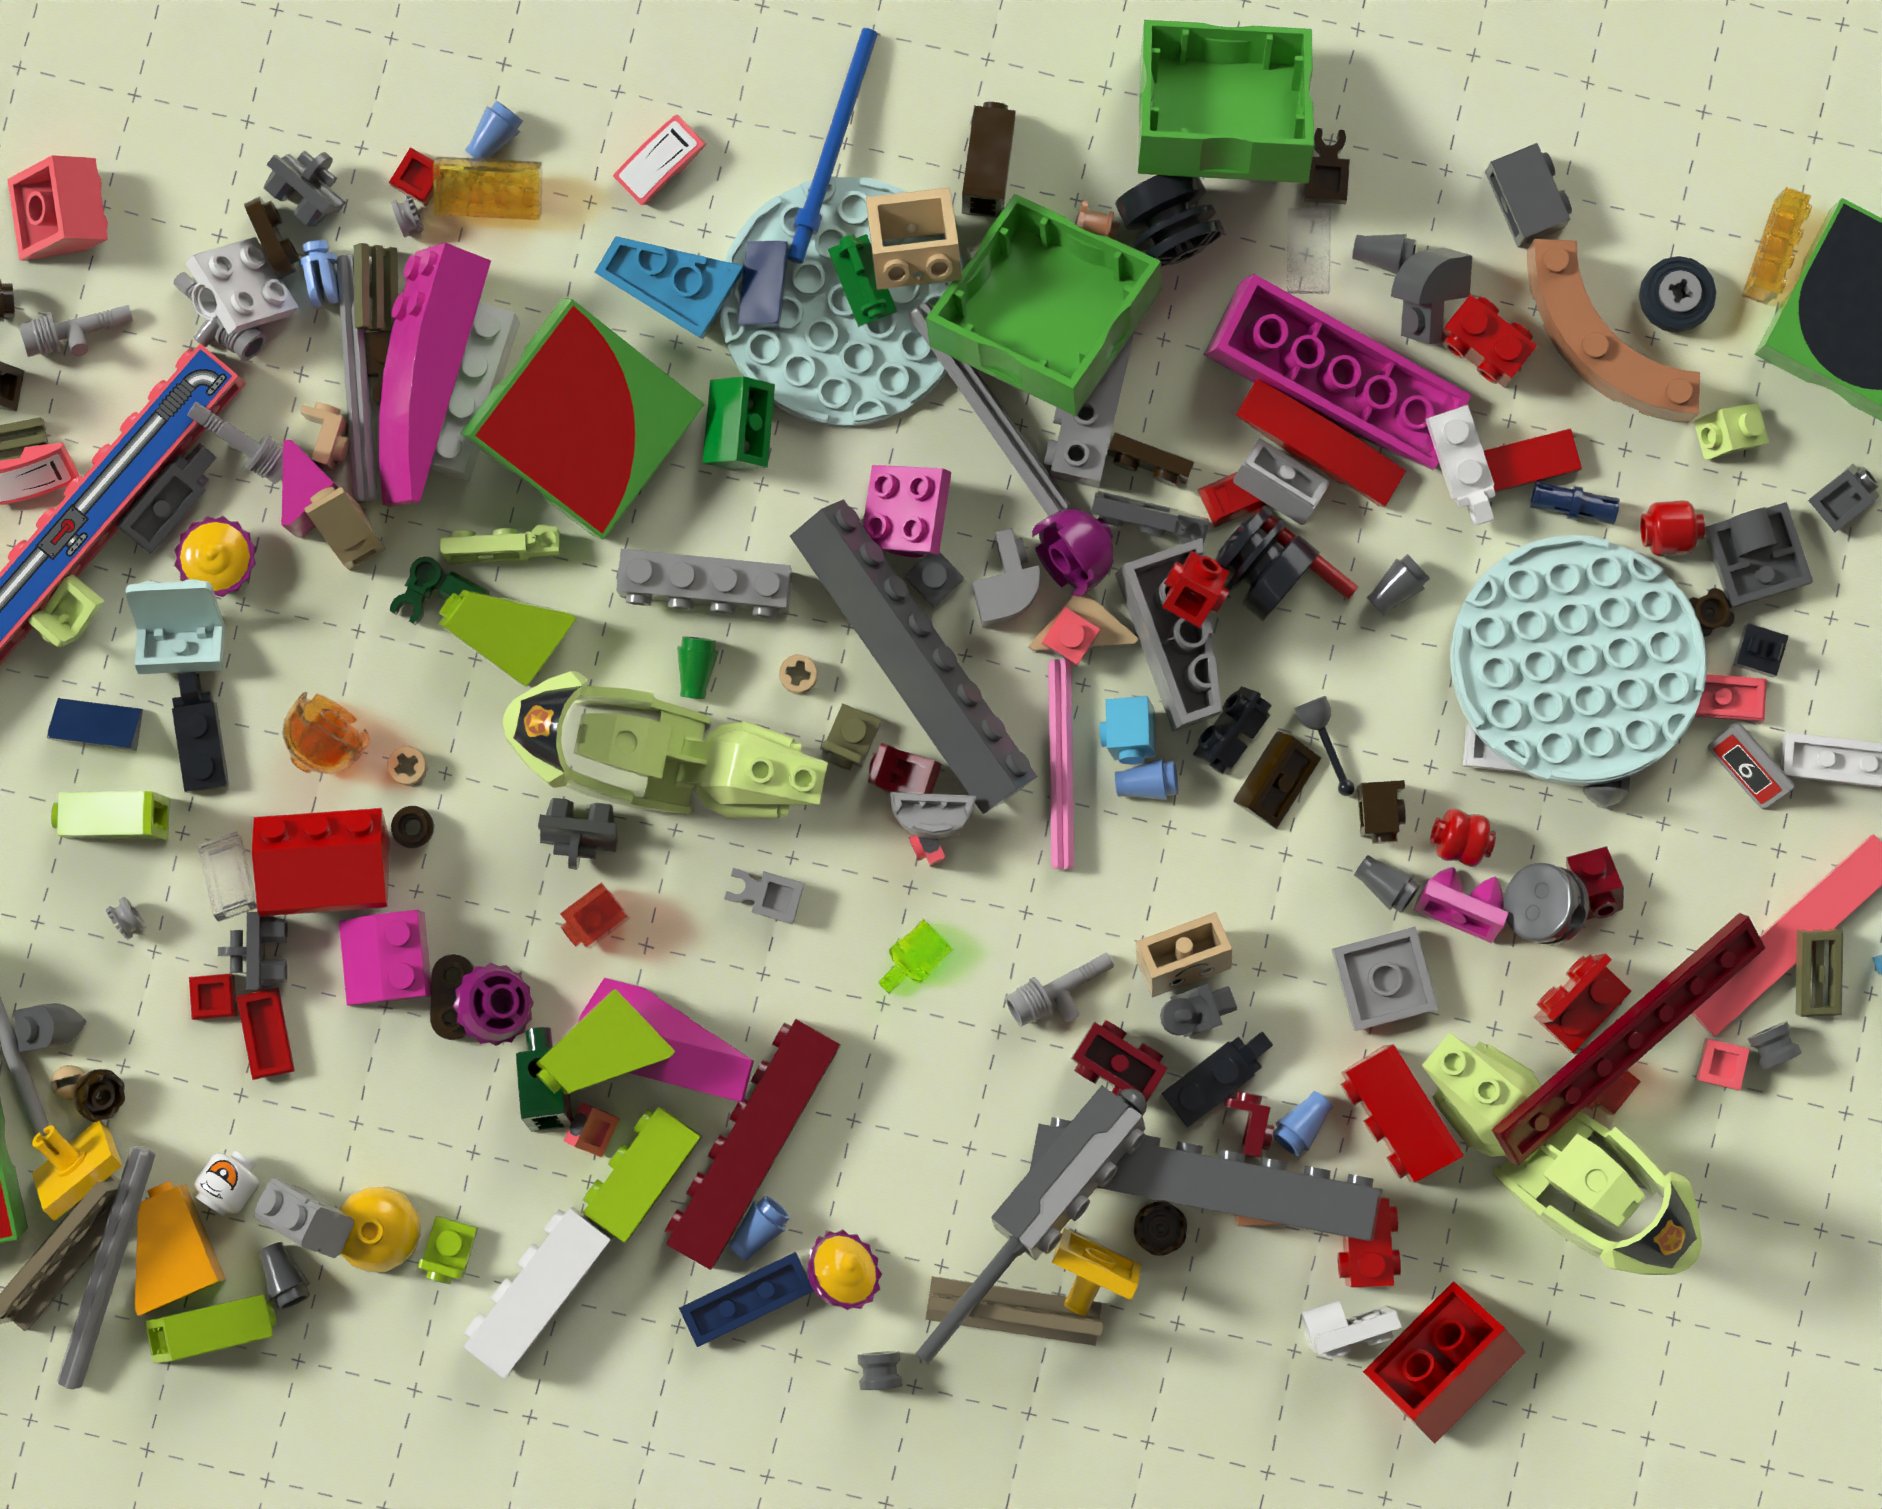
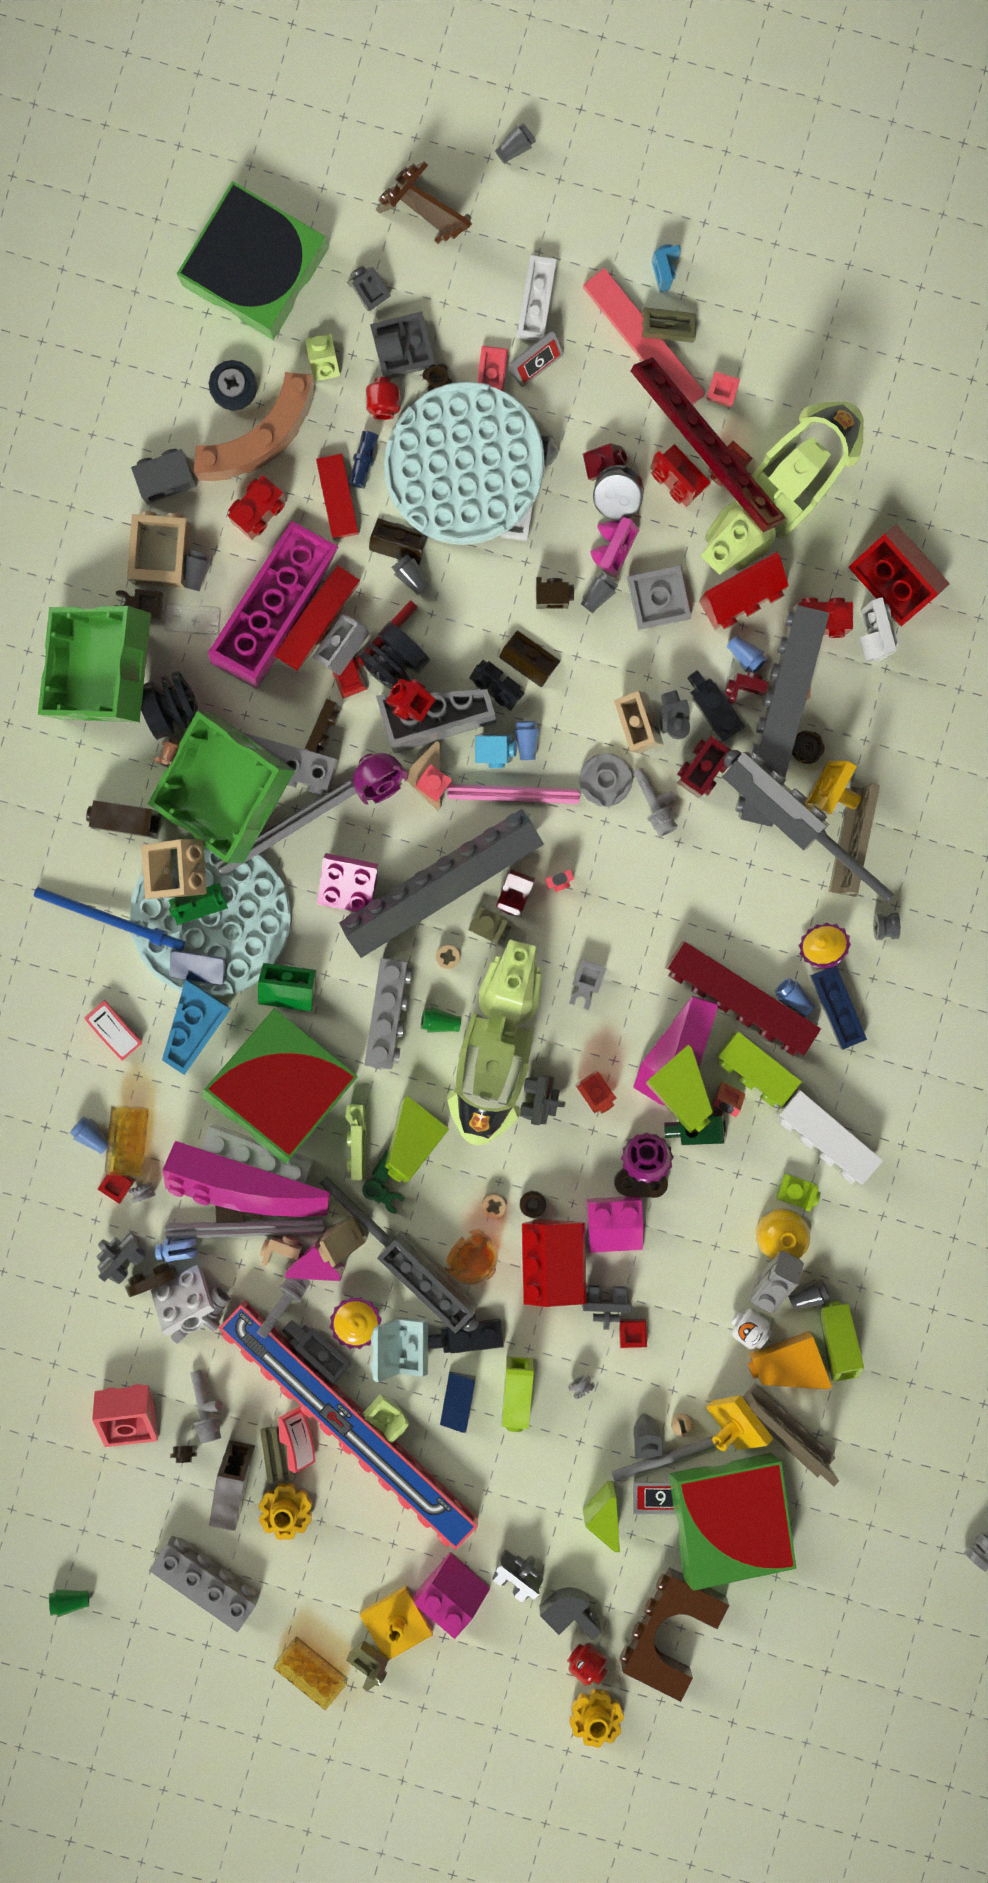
camera: 85 degrees left, 5 degrees up
(106, 1267) = (800, 1405): light grey axle -> none
(109, 1099) = (696, 1401): dark brown plate -> none
(227, 876) = (559, 1322): clear tile -> none
(265, 1033) = (658, 1301): red tile -> none
(301, 646) = (415, 1270): none -> dark grey piece
(382, 288) = (188, 1211): olive tile -> none
(915, 956) = (629, 891): clear neon green piece -> none
(932, 814) = (543, 876): light grey tile -> none
(934, 578) = (391, 868): dark grey plate -> none
(1011, 593) = (401, 816): light grey brick -> none
(1091, 909) = (605, 780): none -> light grey tile
(1152, 517) = (359, 729): dark grey hinge -> none
(1316, 716) = (490, 631): hinge -> none
(1368, 192) = (158, 577): none -> tan window
(1424, 285) = (220, 545): dark grey brick -> none
(1450, 562) = (397, 540): none -> dark brown slope
(1463, 462) = (334, 527): white hinge -> none
(1463, 837) = (573, 543): red piece -> none
(1760, 650) = (463, 348): black tile -> none
(1774, 1045) = (713, 356): dark grey wheel -> none
(1776, 246) = (205, 319): clear yellow piece -> none

